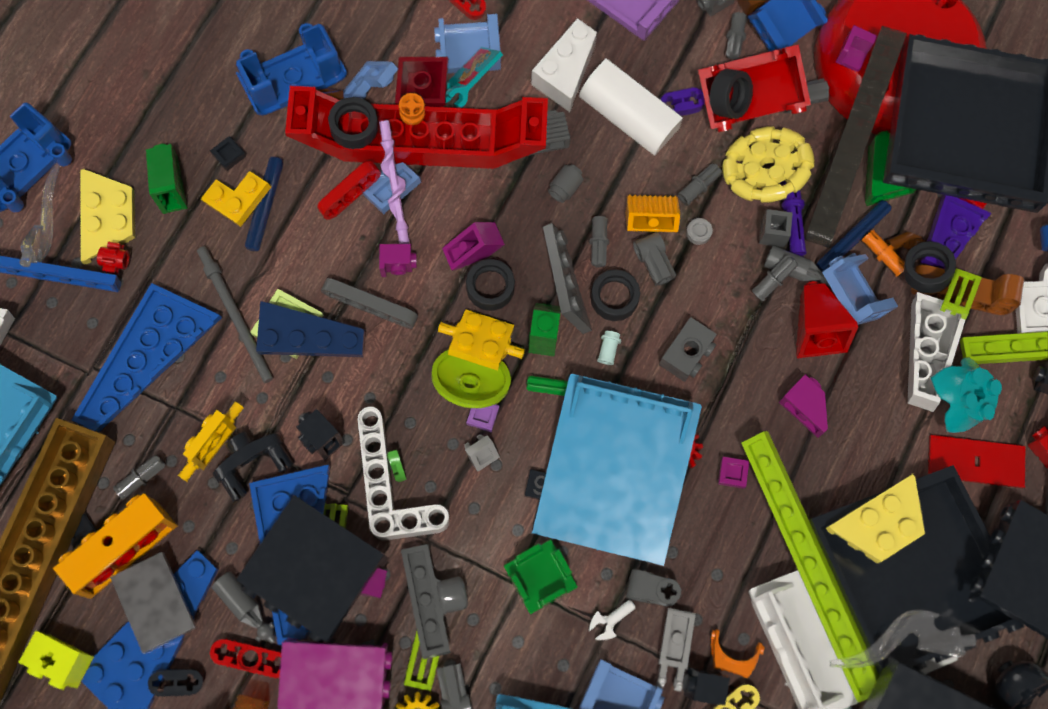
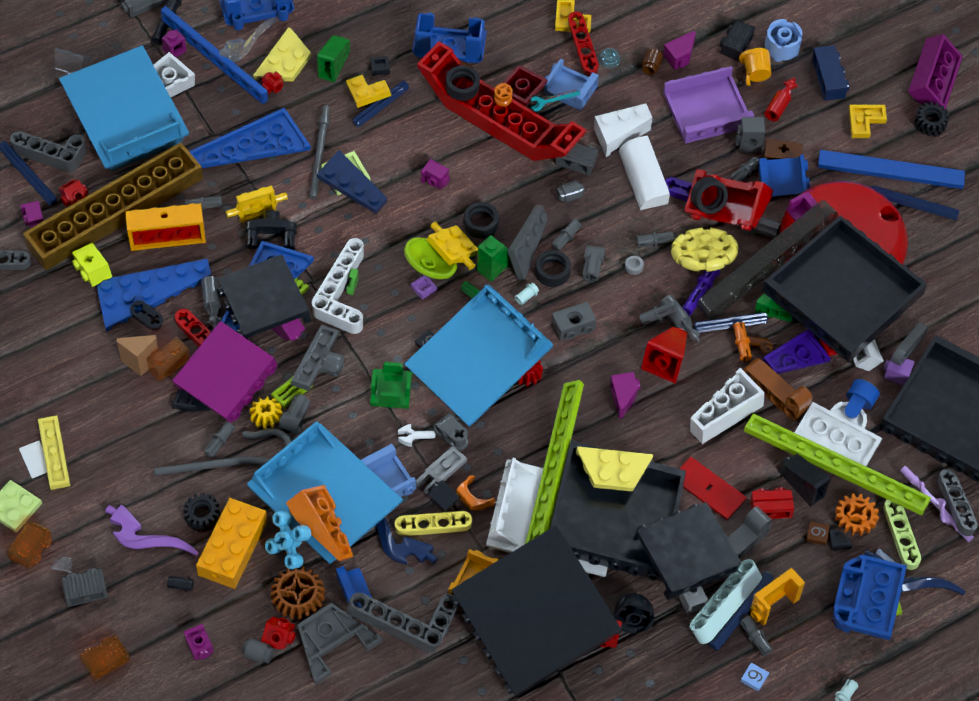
camera: 35 degrees right, 15 degrees down
(153, 602) = (164, 267): flat silver tile -> none
(318, 434) = (319, 237): black brick -> none
(348, 190) = (450, 116): red beam -> none
(369, 303) = (401, 189): dark grey beam -> none
(371, 75) = (496, 69): medium blue plate -> none
(381, 190) = (461, 134): medium blue wing -> none
(397, 183) = (465, 133): lavender piece -> none
(473, 245) = (489, 191): magenta slope -> none
(482, 452) = (406, 303): light grey tile -> none
(652, 213) = (610, 236): light orange brick -> none
(733, 472) = (548, 402): magenta plate -> none
(775, 228) = (680, 286): dark grey brick -> none
(854, 290) = (703, 346): medium blue panel -> none
(916, 622) = (591, 528): clear piece -> none
(930, 249) = (759, 348): black tyre -> none
(955, 308) = (768, 384): lime tile -> none
(969, 392) = (714, 445): teal brick -> none

